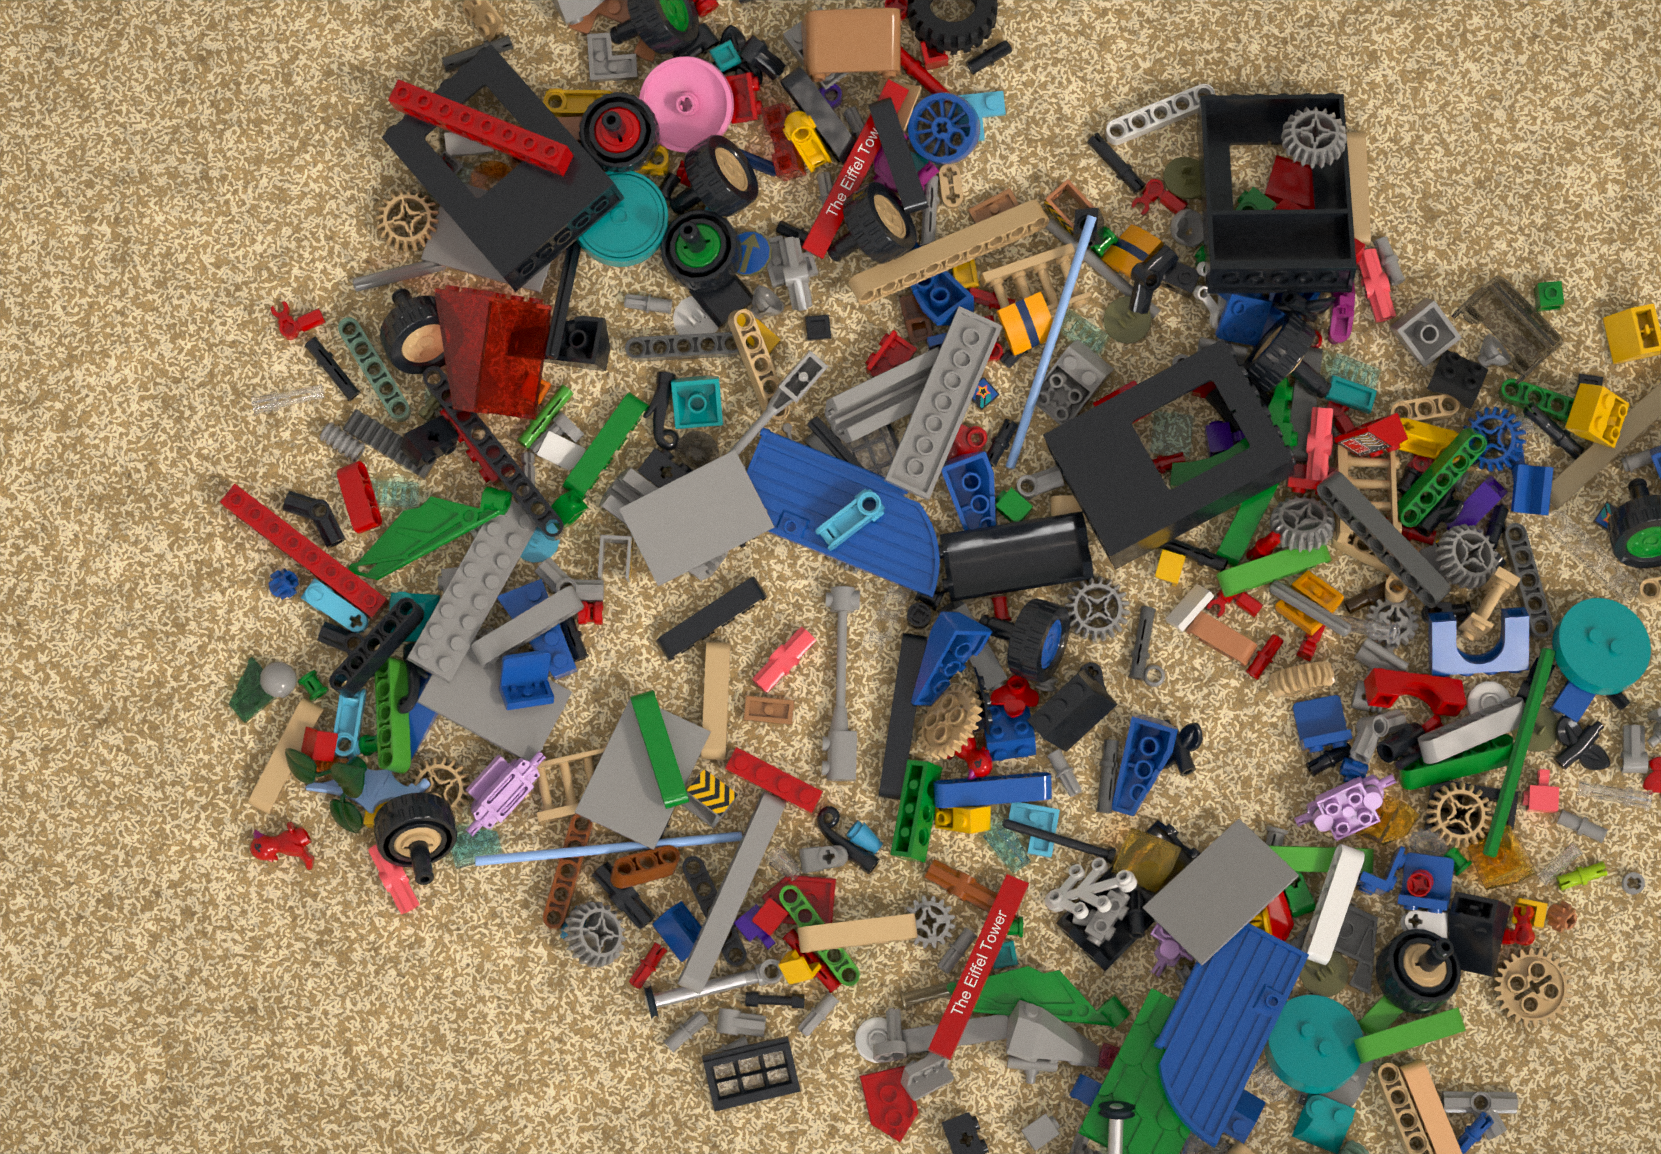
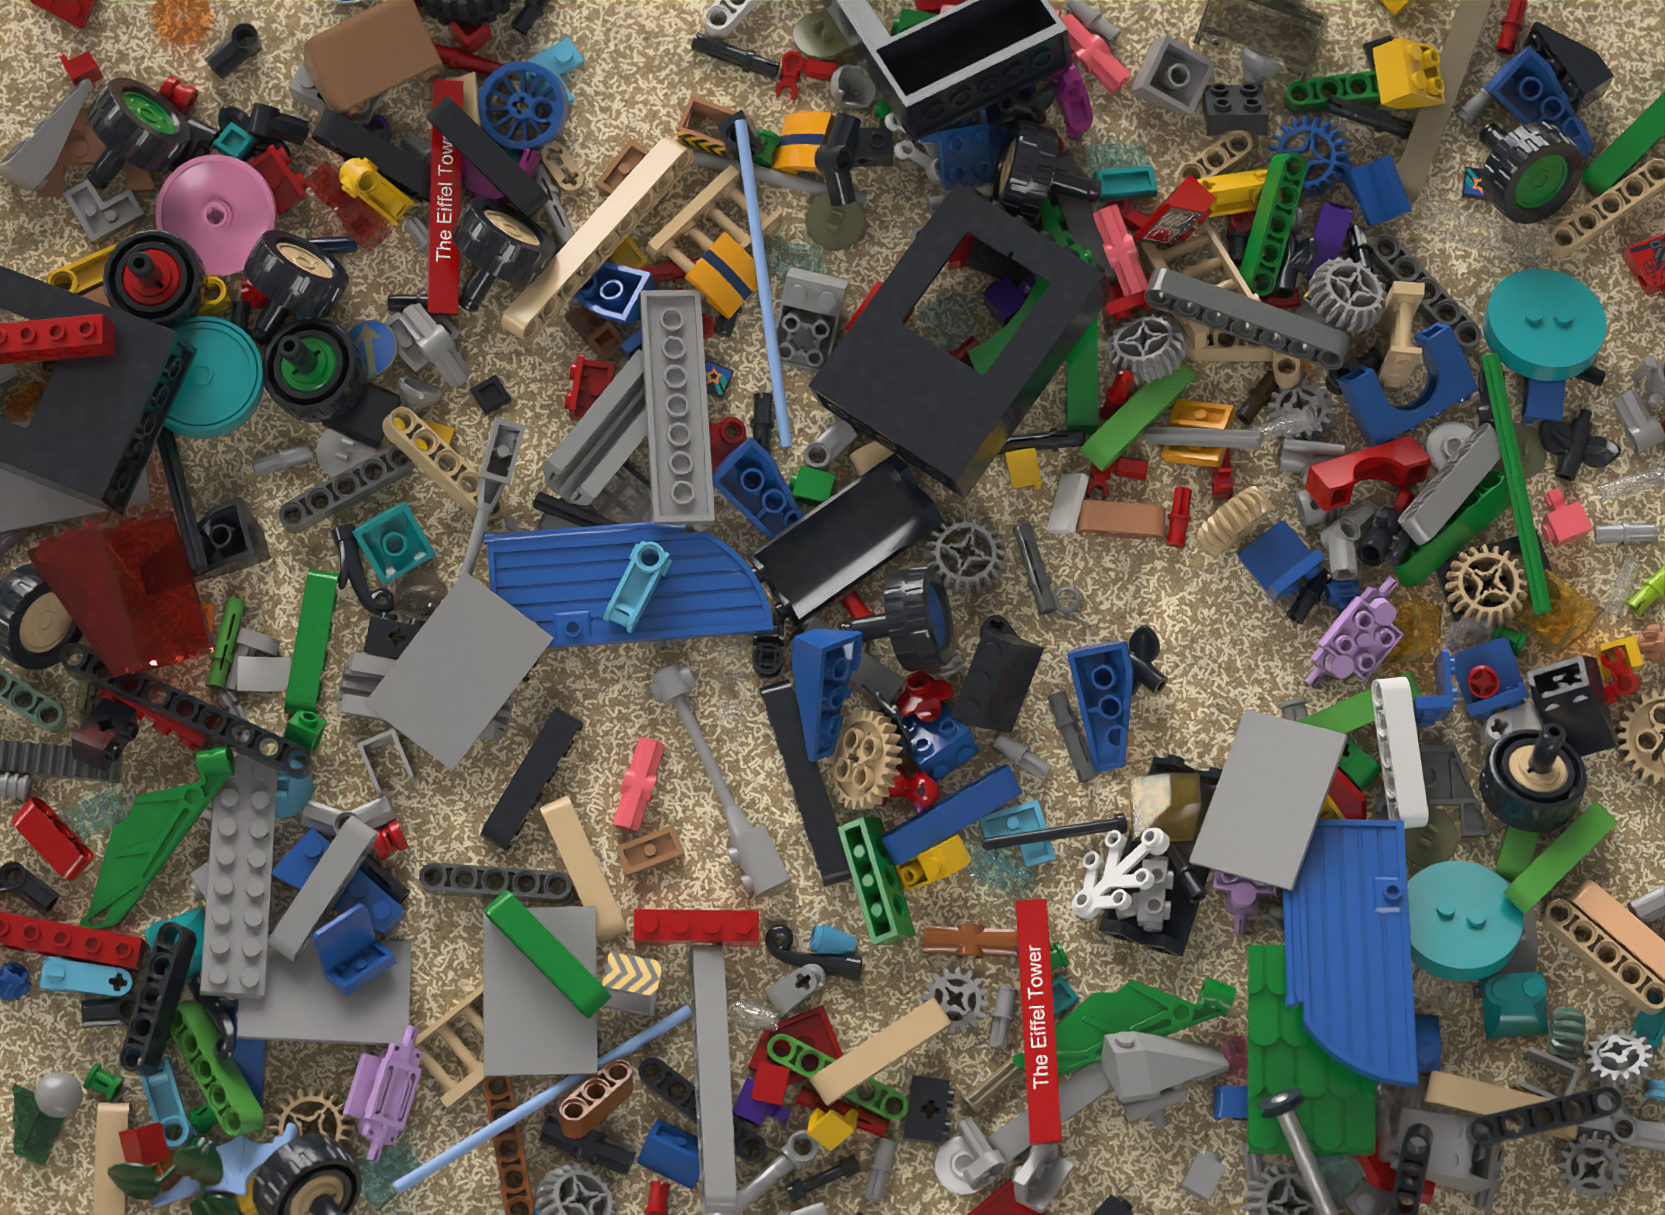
camera: 30 degrees left, 5 degrees down
(642, 671) = (482, 875): none -> dark grey beam
(873, 975) = (925, 1091): none -> black brick

